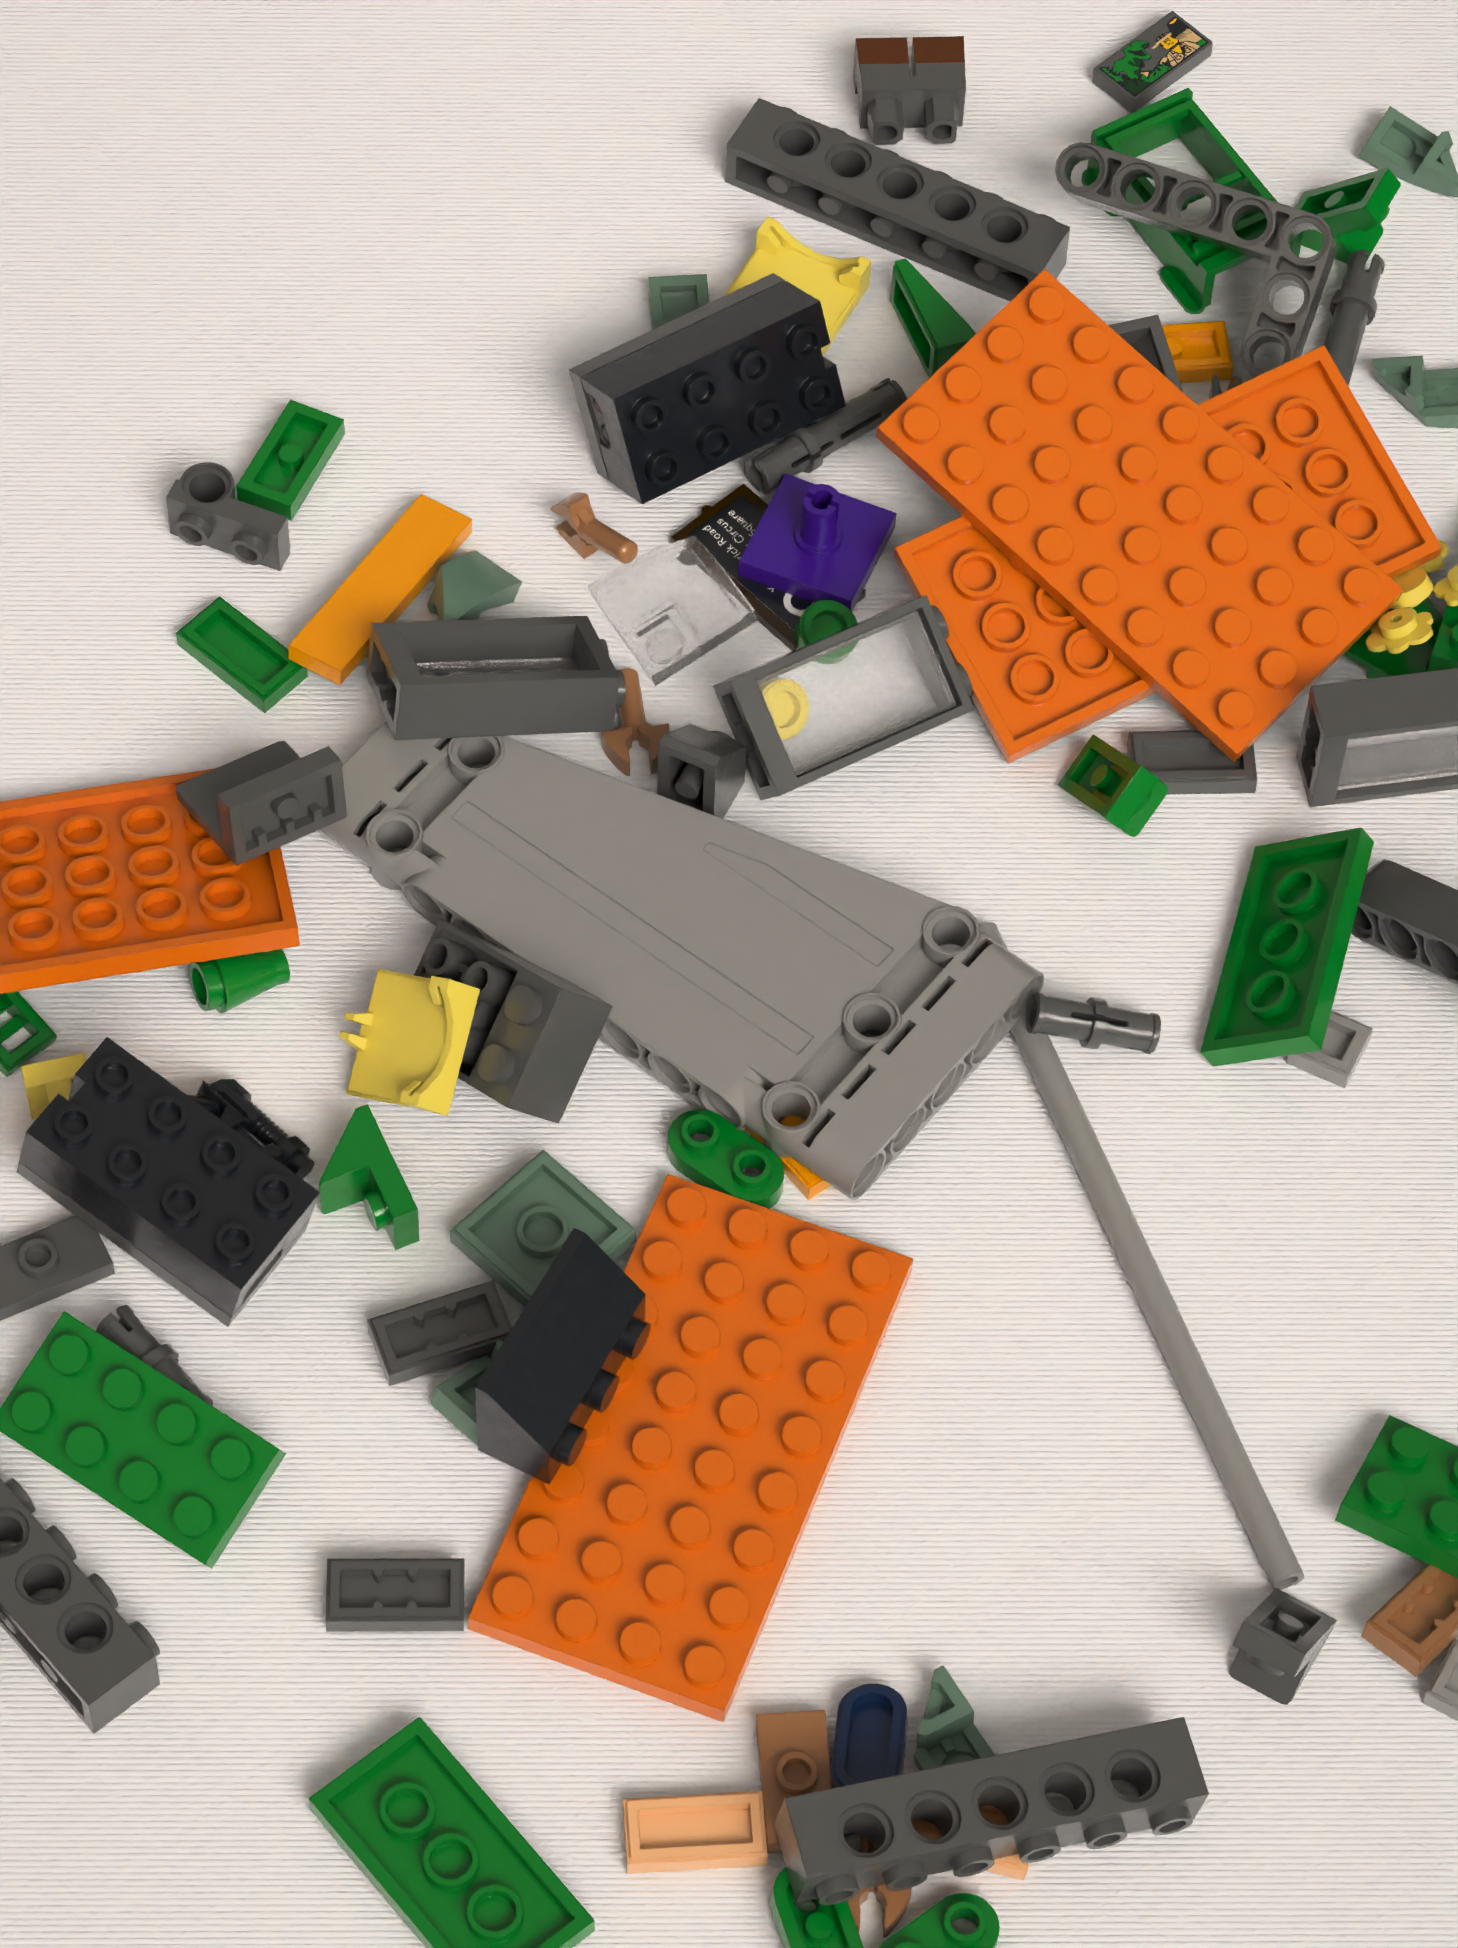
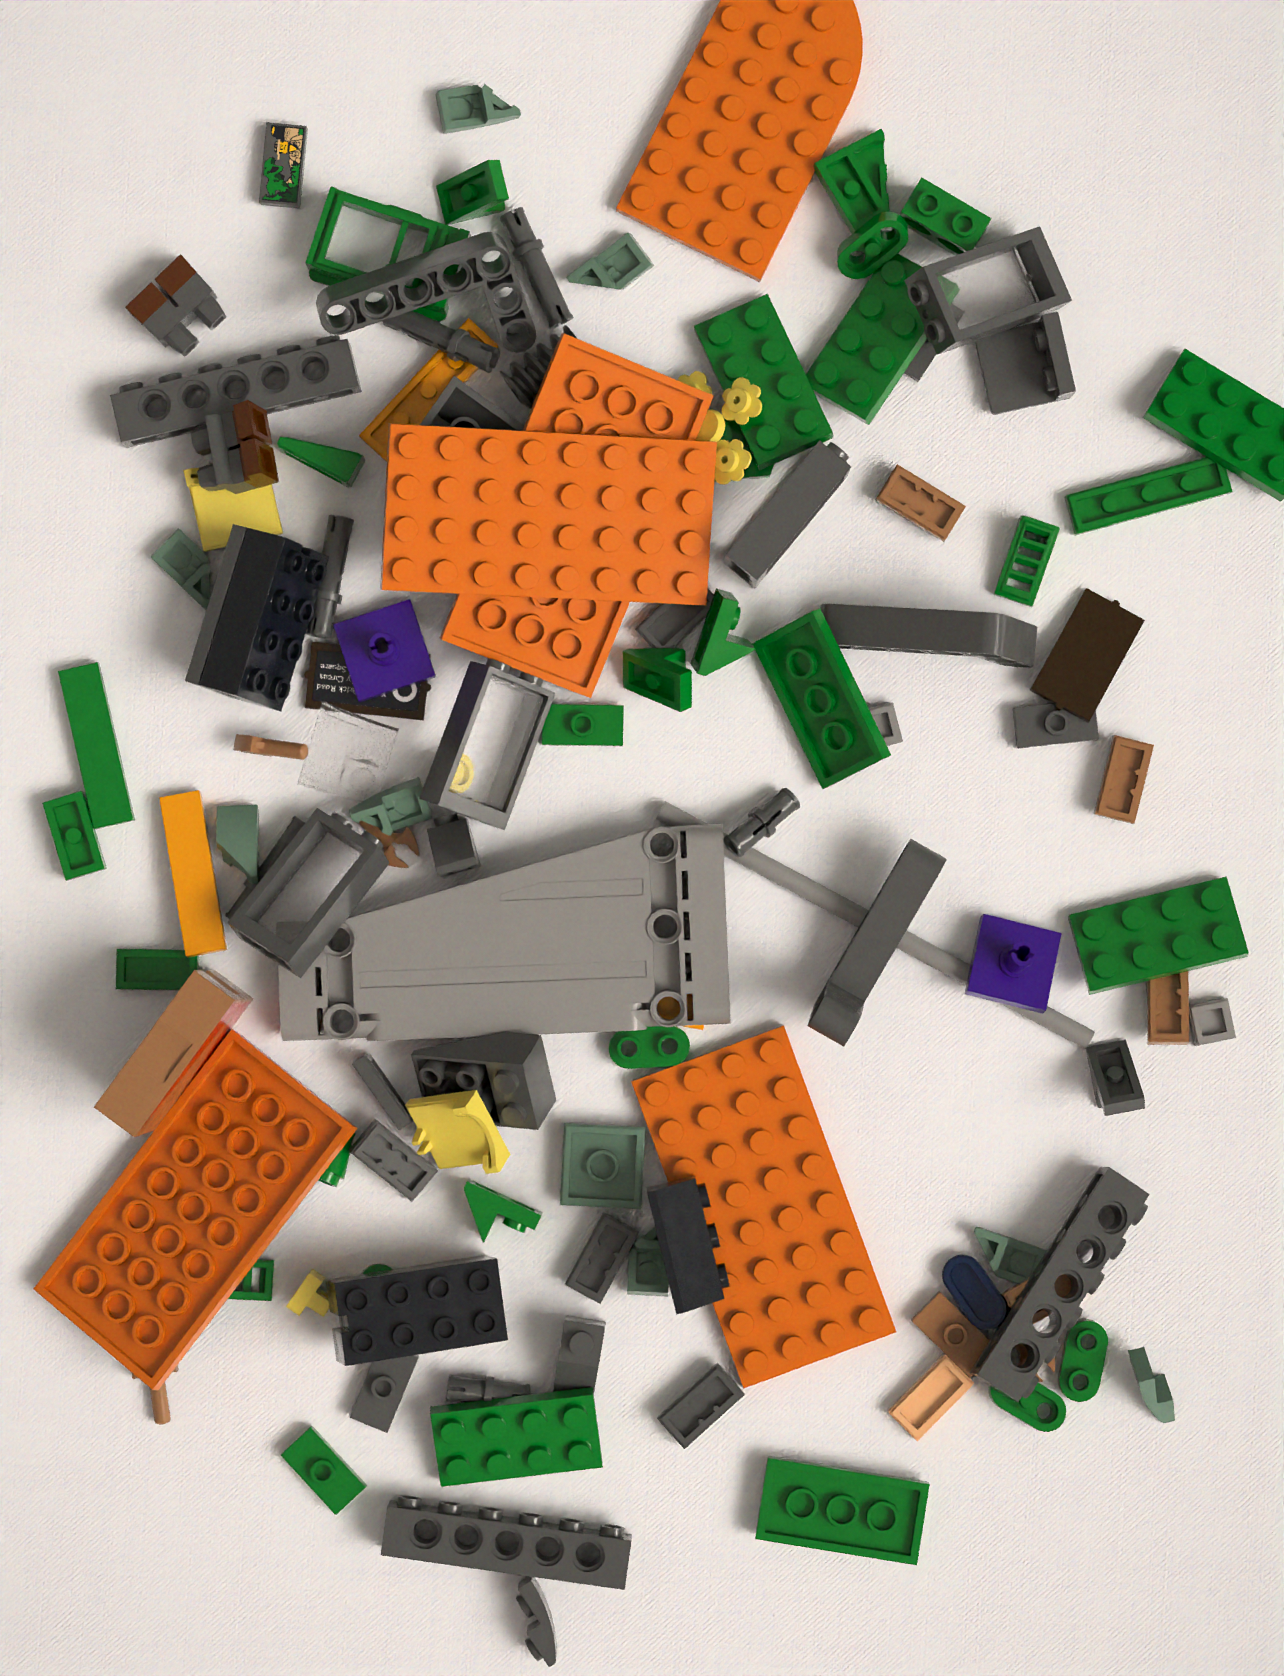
camera: 35 degrees left, 30 degrees up
(178, 675) = (173, 1052): none -> medium nougat tile
(207, 513) = (100, 902): dark grey plate -> none
(234, 1107) = (400, 1235): black piece -> none
(266, 799) = (263, 1065): dark grey bracket -> none
(303, 1034) = (393, 1160): none -> dark grey plate
(311, 1407) = (579, 1353): none -> dark grey slope
(367, 947) = (383, 1090): none -> dark grey tile
(404, 405) = (96, 745): none -> green tile
(671, 690) = (394, 807): none -> sand green slope
(822, 620) = (435, 699): green tile -> none
(846, 230) = (238, 450): none -> hips
(973, 783) = (584, 725): none -> green plate
(1113, 1240) = (874, 942): none -> dark grey beam
(1185, 319) = (455, 343): none -> dark grey pin
(1209, 808) = (715, 645): none -> green slope
(1267, 1410) = (1013, 963): none -> dark purple tile

